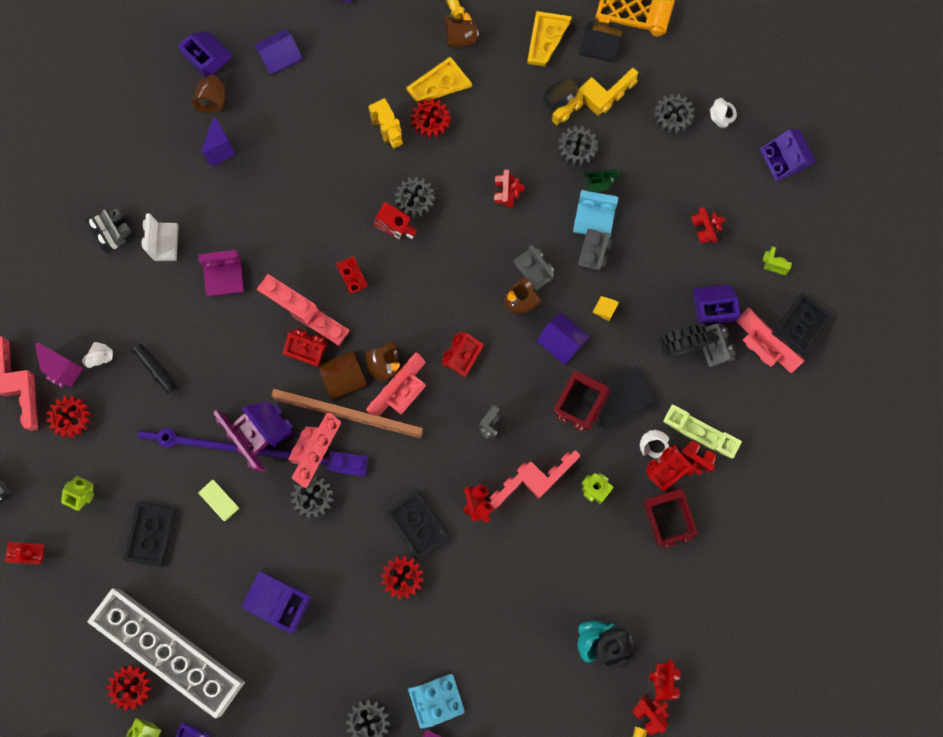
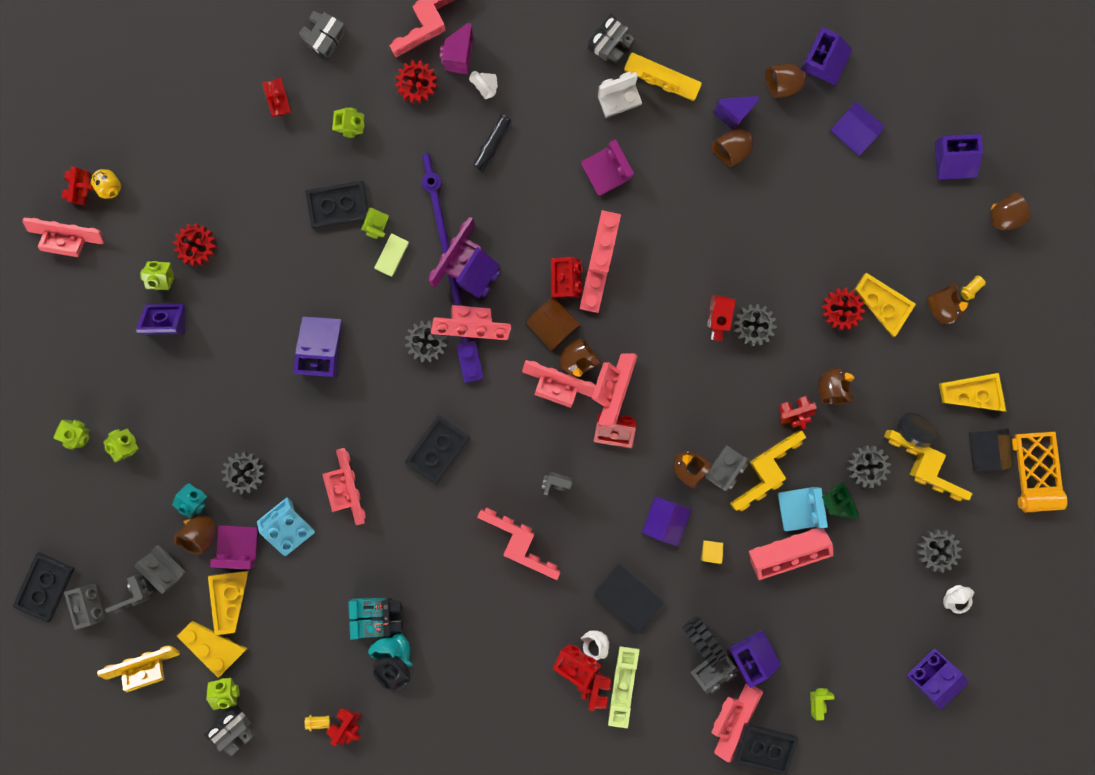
camera: 65 degrees right, 10 degrees up
(161, 196) = (662, 76): none -> yellow bracket
(166, 652) = (237, 265): white brick -> none
(182, 504) = (375, 223): none -> lime bracket
(249, 152) = (736, 143): none -> reddish brown piece
(346, 413) = (516, 343): nougat tile -> none
(351, 274) = (652, 295): red hips -> none
(389, 126) = (816, 272): yellow hips -> none
(399, 566) = (376, 444): red gear -> none
(420, 629) = (342, 489): none -> coral bracket
(421, 339) = (612, 388): none -> coral bracket
(477, 505) = (475, 499): red hips -> none
(497, 148) = (835, 387): none -> reddish brown piece
(550, 232) = (768, 471): none -> yellow bracket
(555, 638) = (380, 619): none -> hips
(590, 383) = (586, 566): dark red window -> none
(594, 249) = (766, 520): dark grey bracket -> none
(603, 487) = (532, 612): lime brick -> none
(631, 238) = (791, 553): none -> coral brick
(664, 680) = (378, 729): red hips -> none
(679, 495) = (543, 668): dark red window -> none
(703, 218) = (839, 617): red hips -> none

